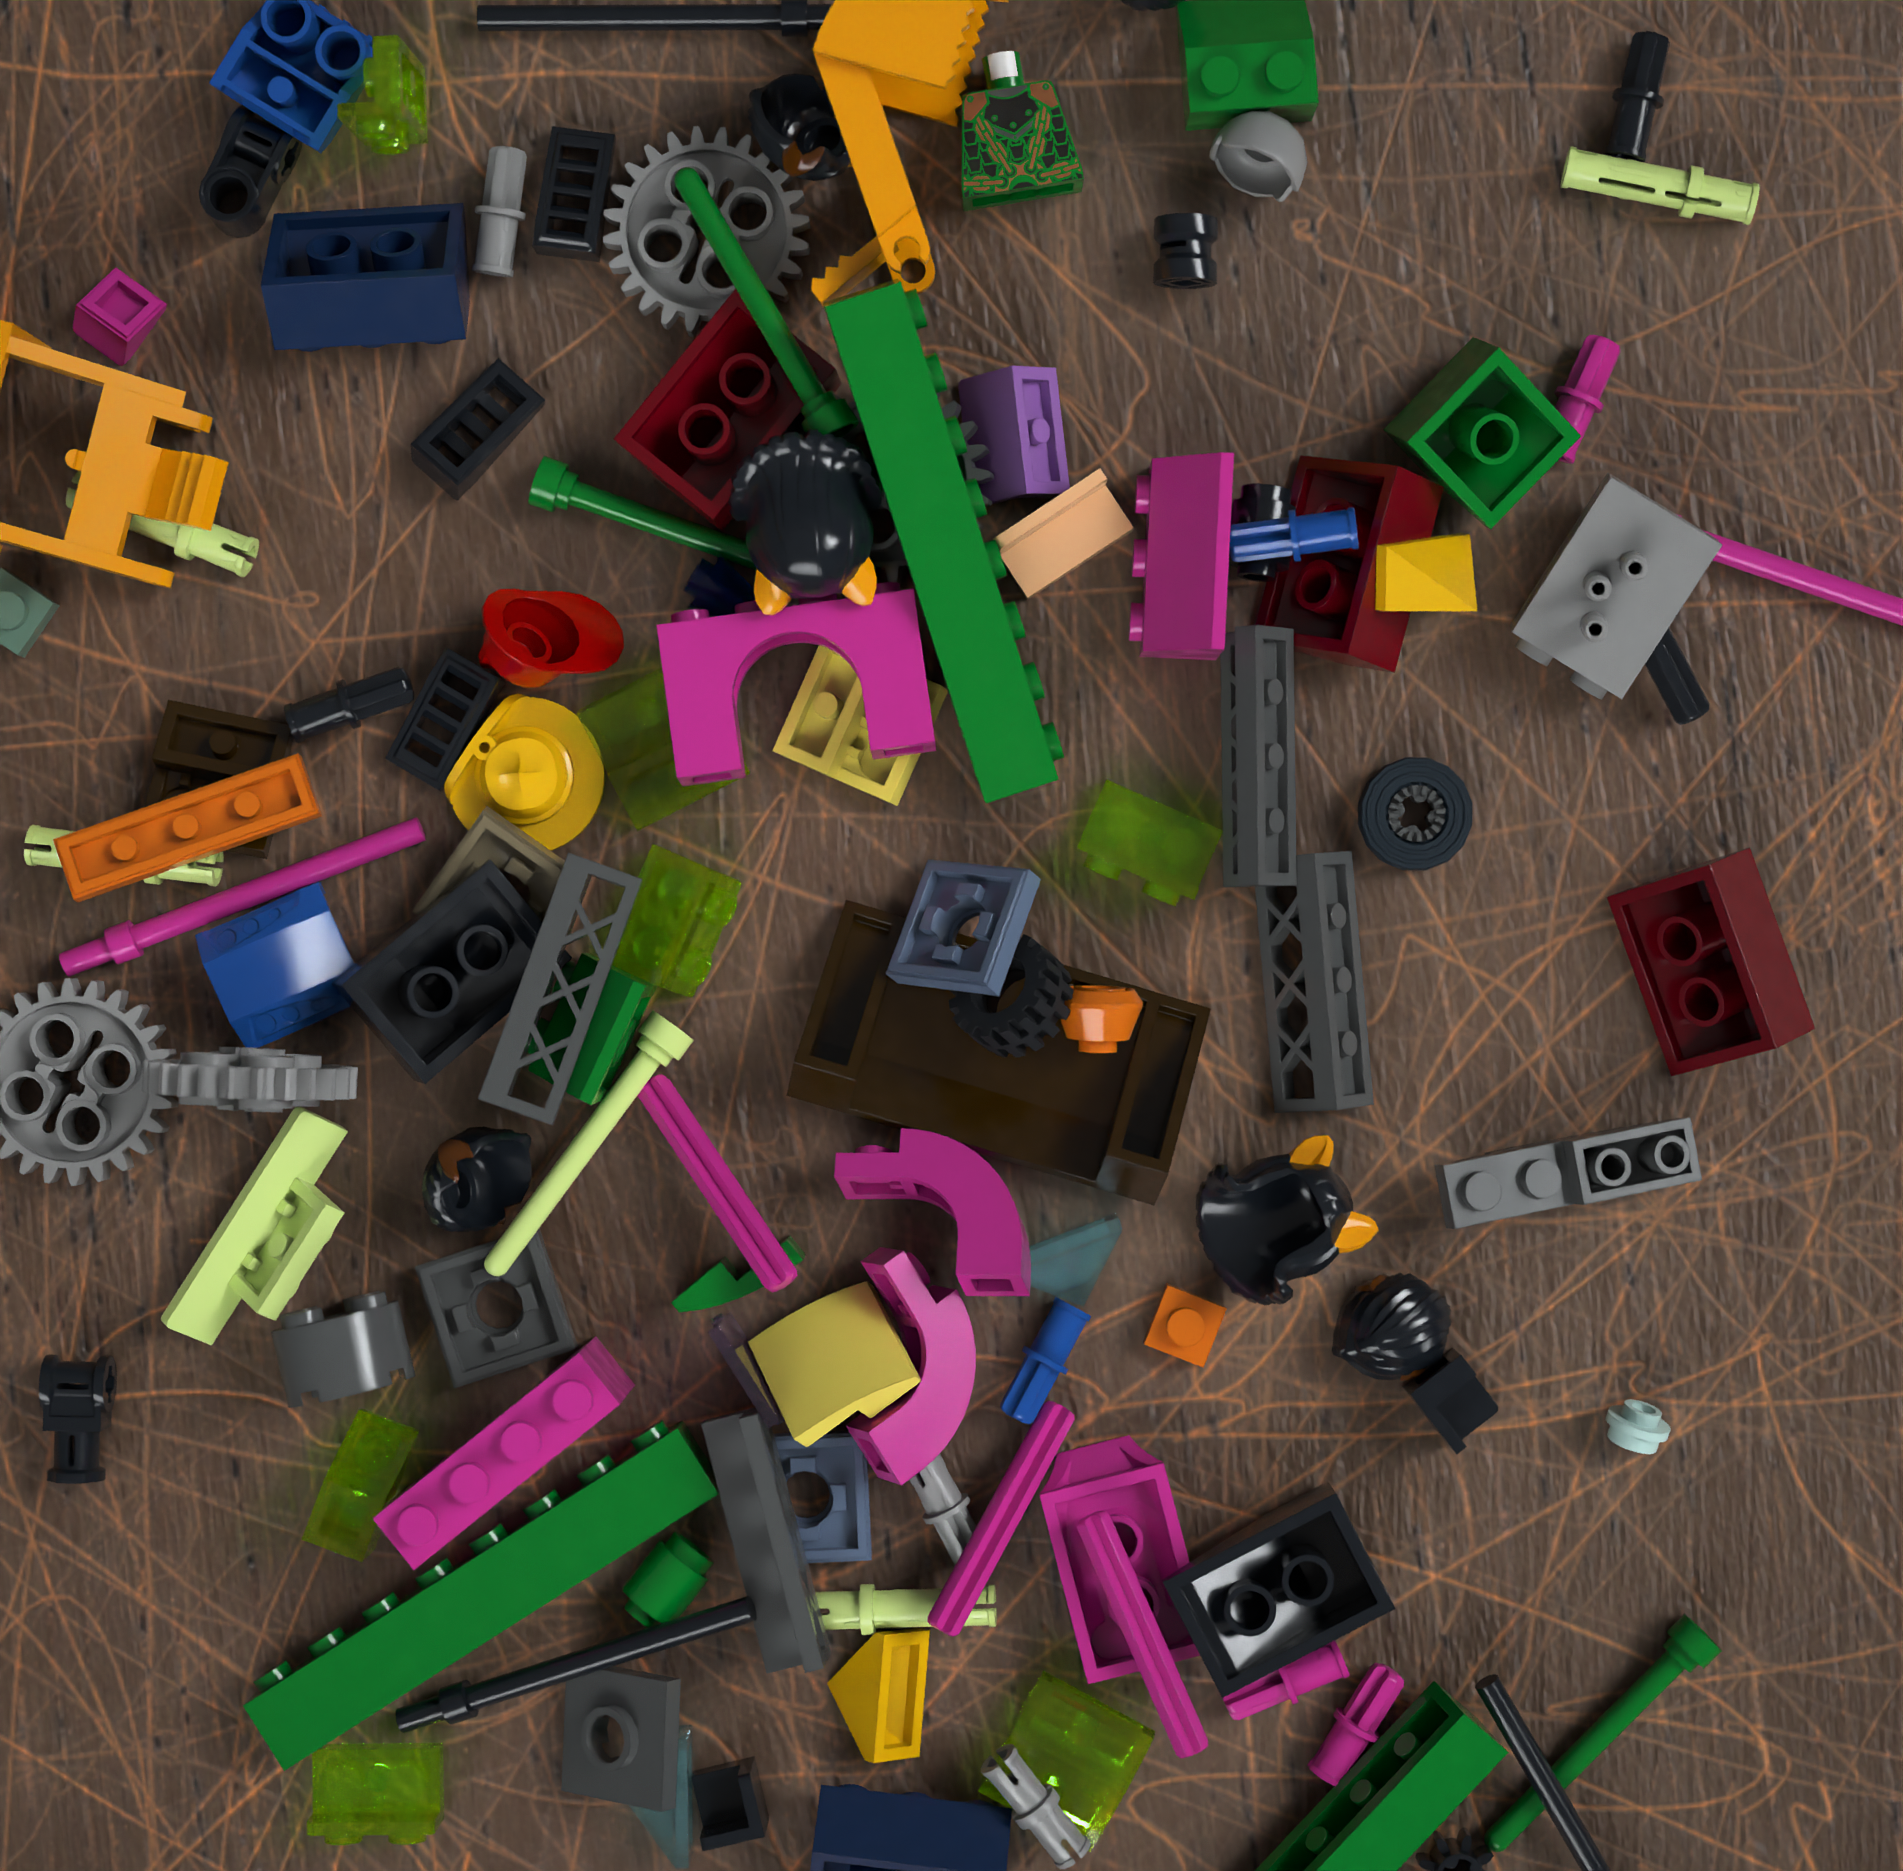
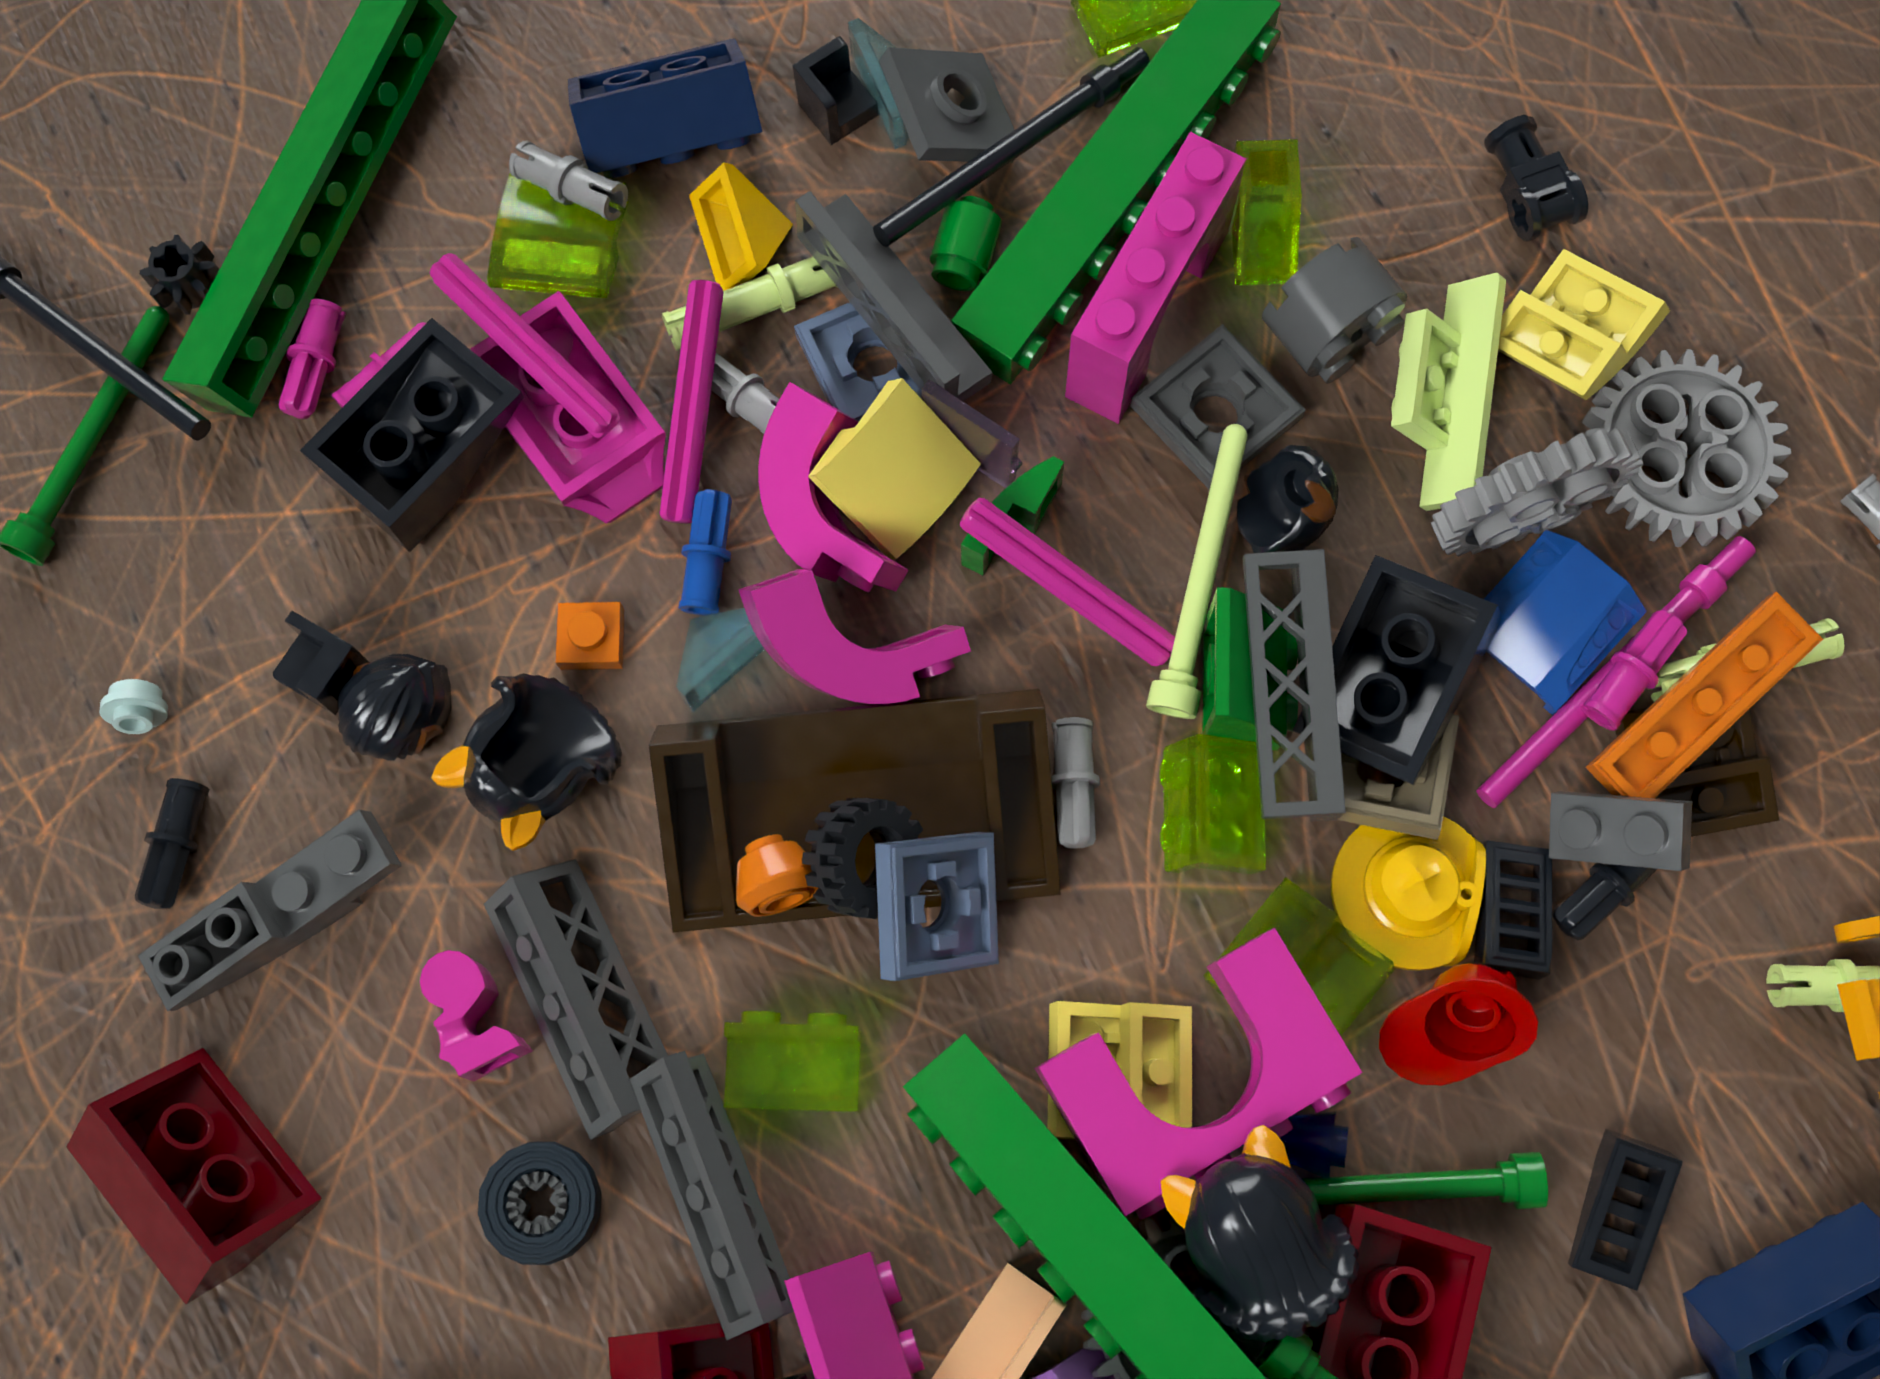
camera: 160 degrees right, 15 degrees down
(114, 1243) = (1579, 325): none -> light yellow slope
(232, 886) = (1634, 670): none -> dark pink axle
(323, 744) = (1620, 830): none -> dark grey plate
(790, 995) = (1074, 782): none -> light grey axle
(1419, 1030) = (465, 994): none -> dark pink leg
(1642, 1277) = (171, 843): none -> black axle

